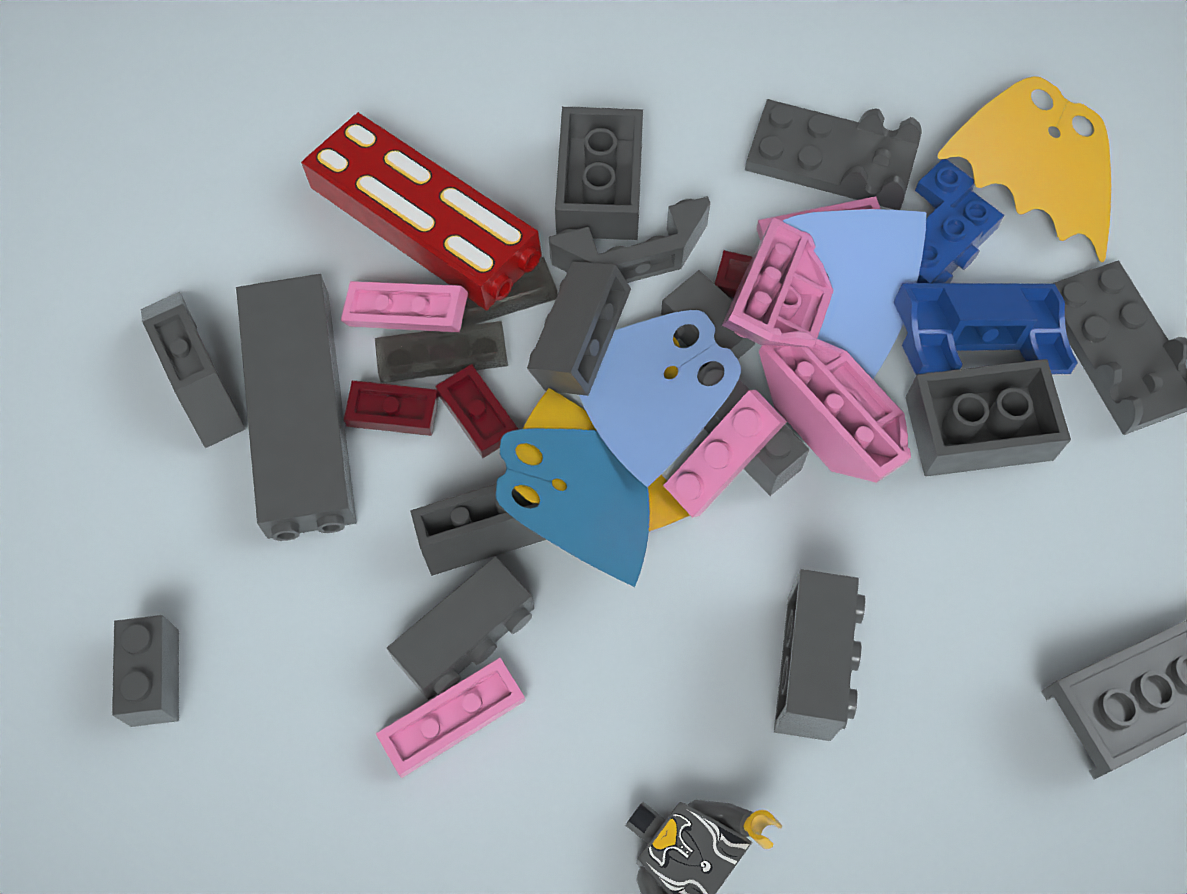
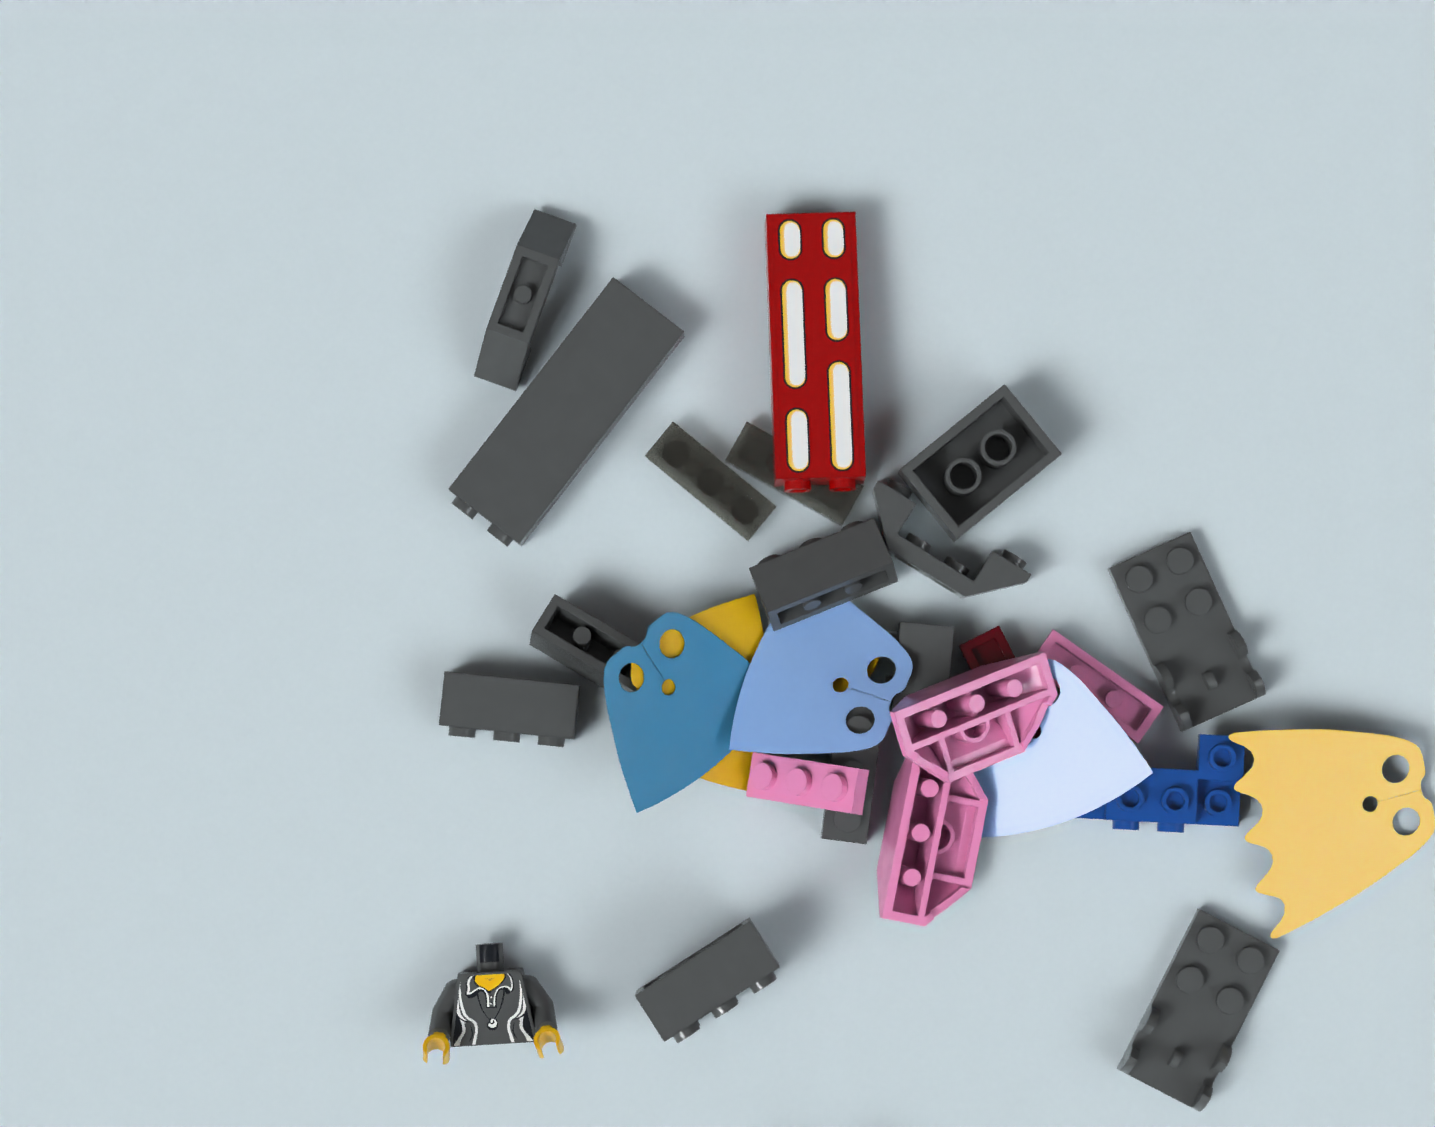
camera: 50 degrees right, 20 degrees up
(145, 671) = (281, 514): dark grey brick -> none
(391, 408) = (630, 488): dark red plate -> none
(404, 306) = (717, 421): bright pink plate -> none
(450, 717) = (442, 757): bright pink plate -> none
(476, 409) = (686, 556): dark red plate -> none
(983, 317) = (1111, 884): blue bracket -> none
(986, 417) = (1021, 954): dark grey brick -> none

